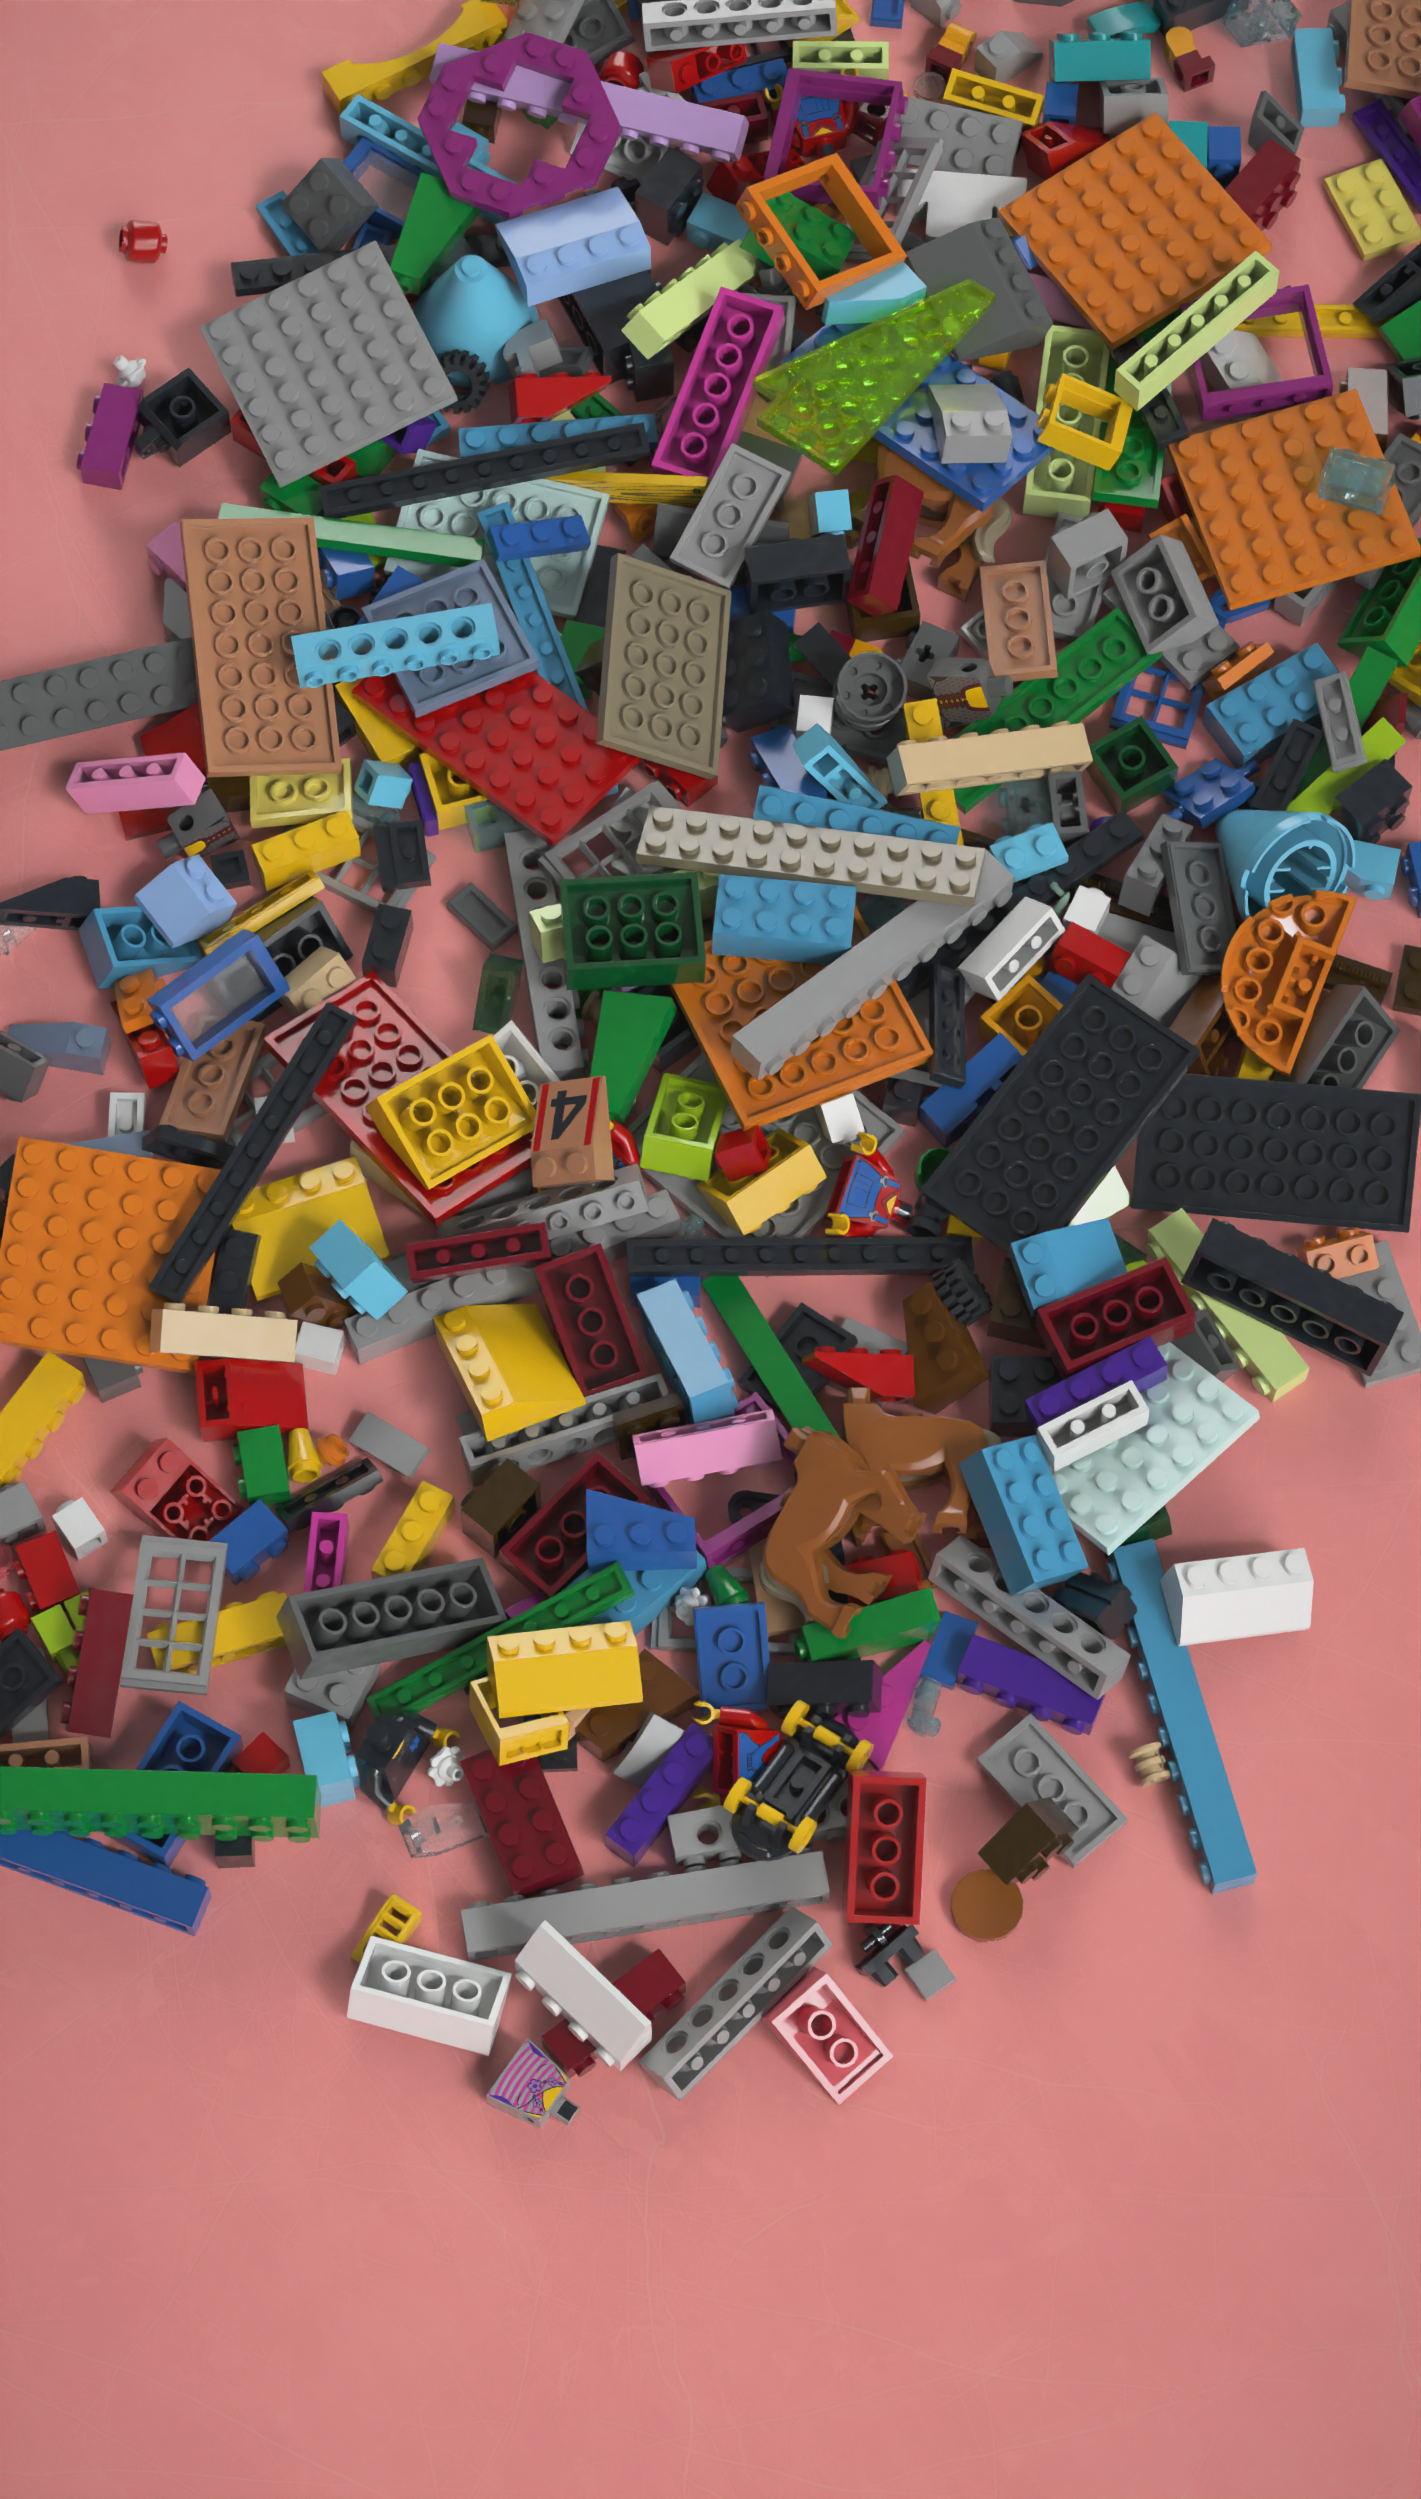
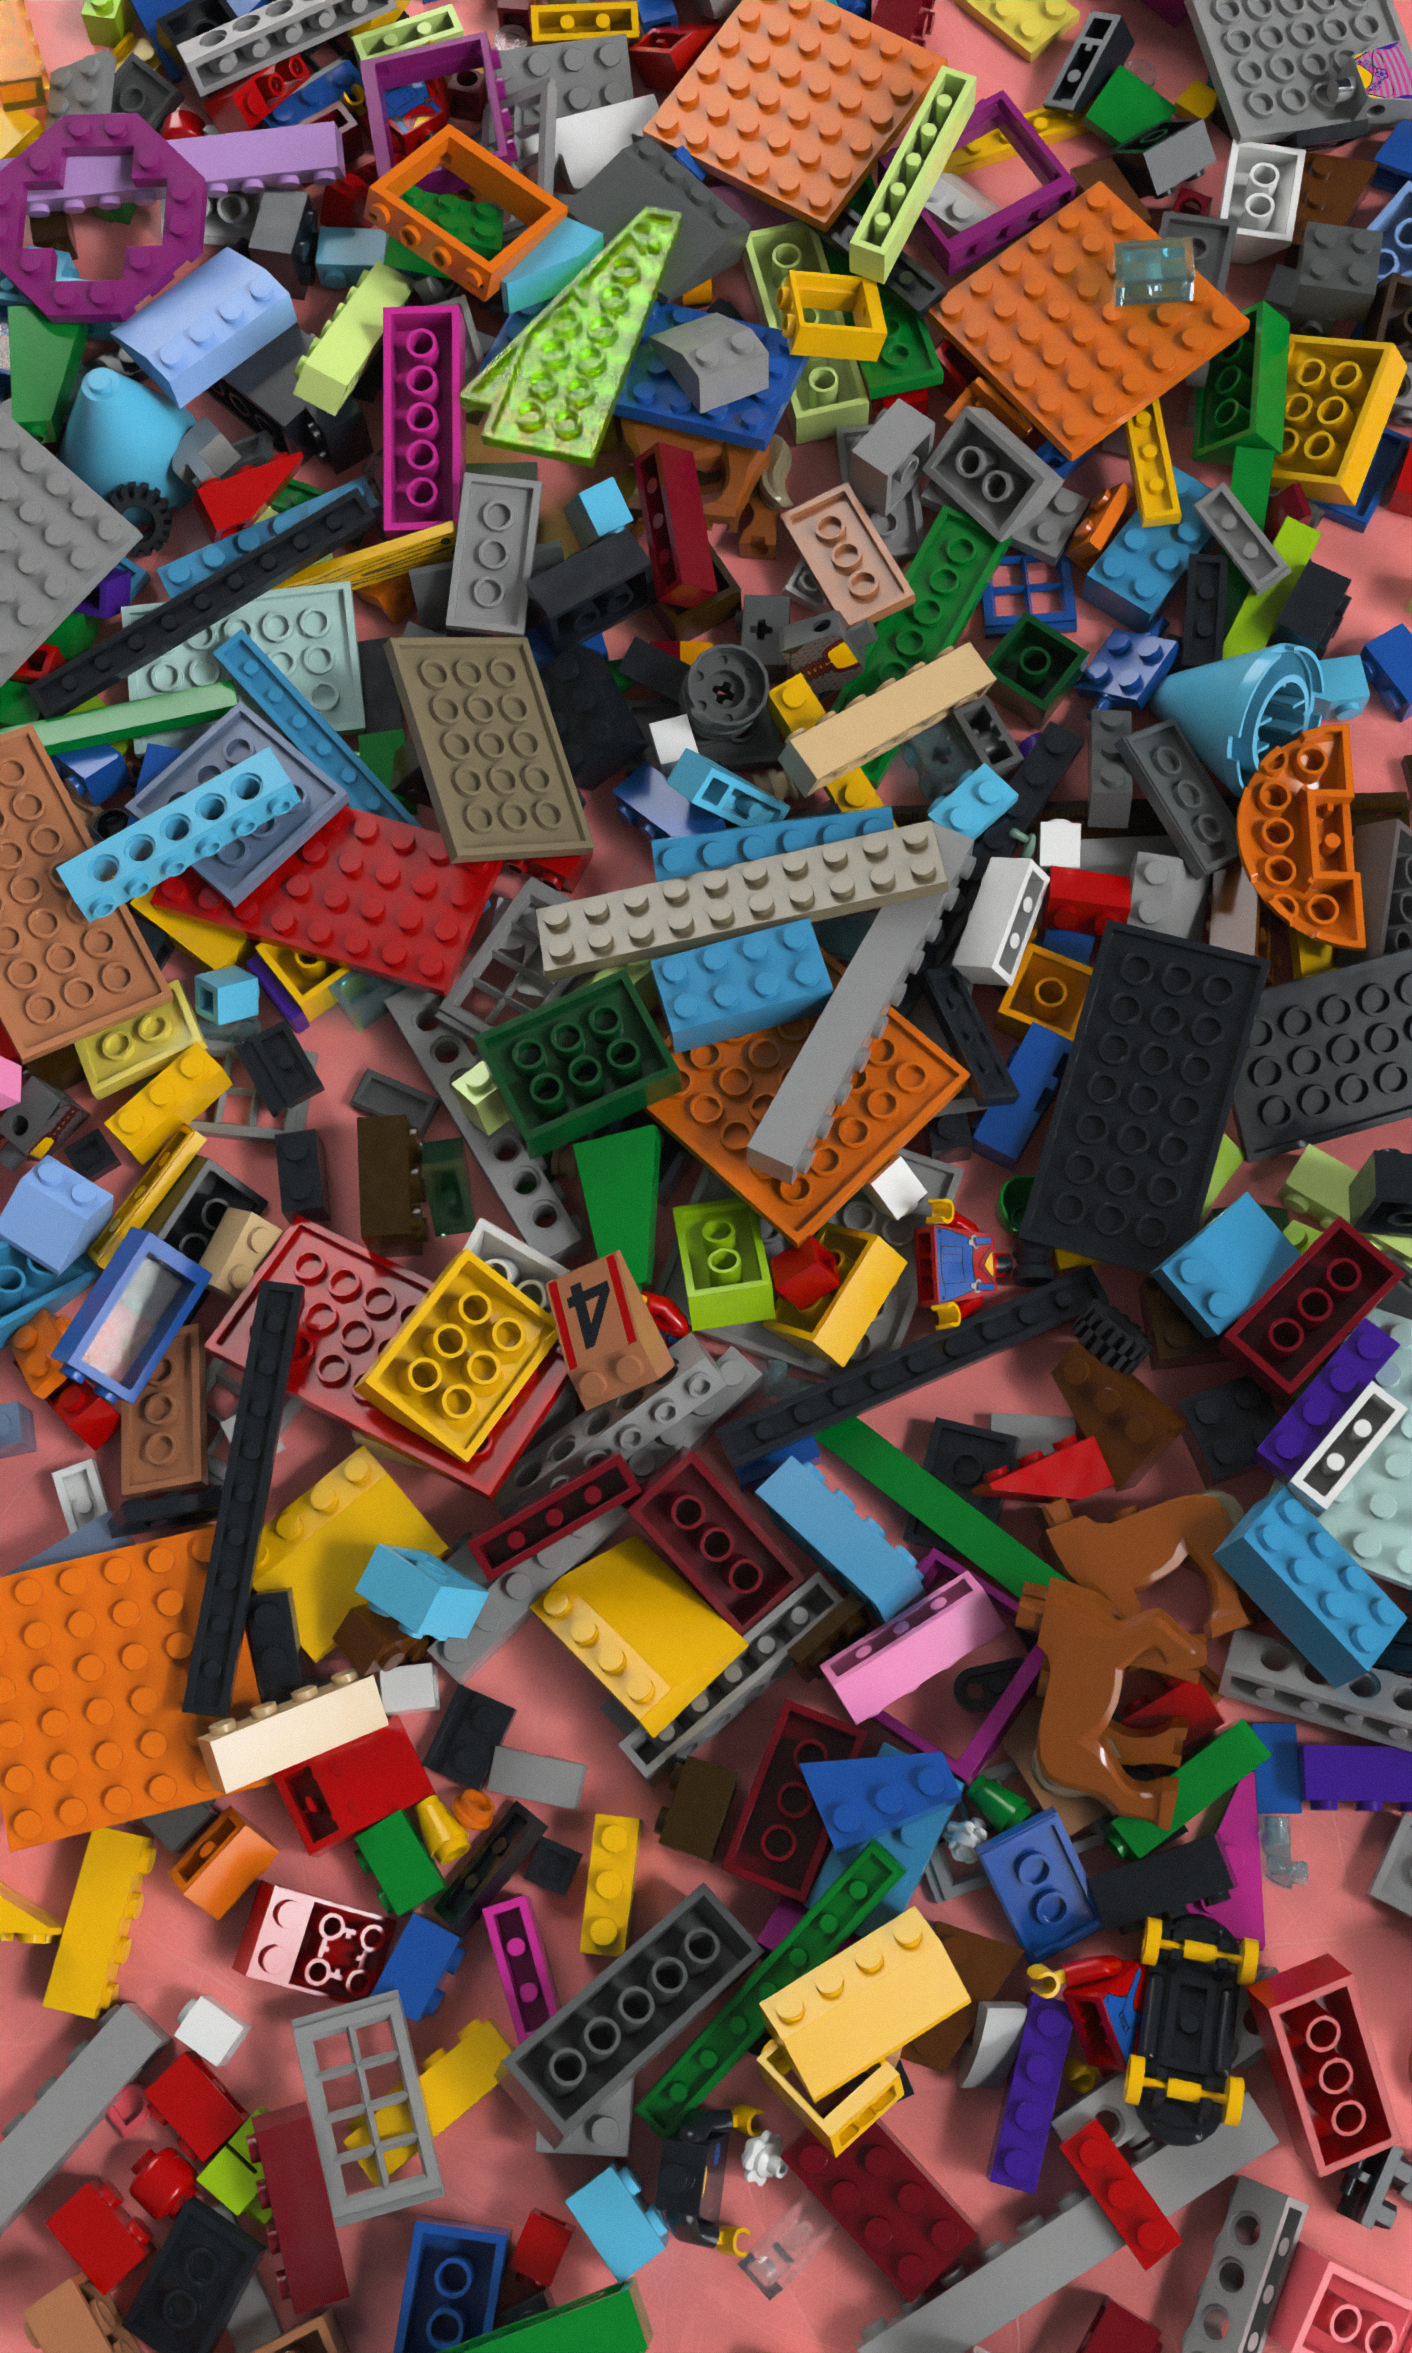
camera: 15 degrees left, 5 degrees up
(134, 1415) = (224, 1863): none -> orange brick
(348, 1399) = (468, 1737): none -> black plate
(376, 1512) = (553, 1866): none -> black plate
(453, 975) = (391, 1186): none -> dark brown brick
(538, 538) = (291, 656): blue plate -> none
(696, 1878) = (1120, 2193): none -> red plate
(1296, 638) = (1151, 468): none -> yellow tile

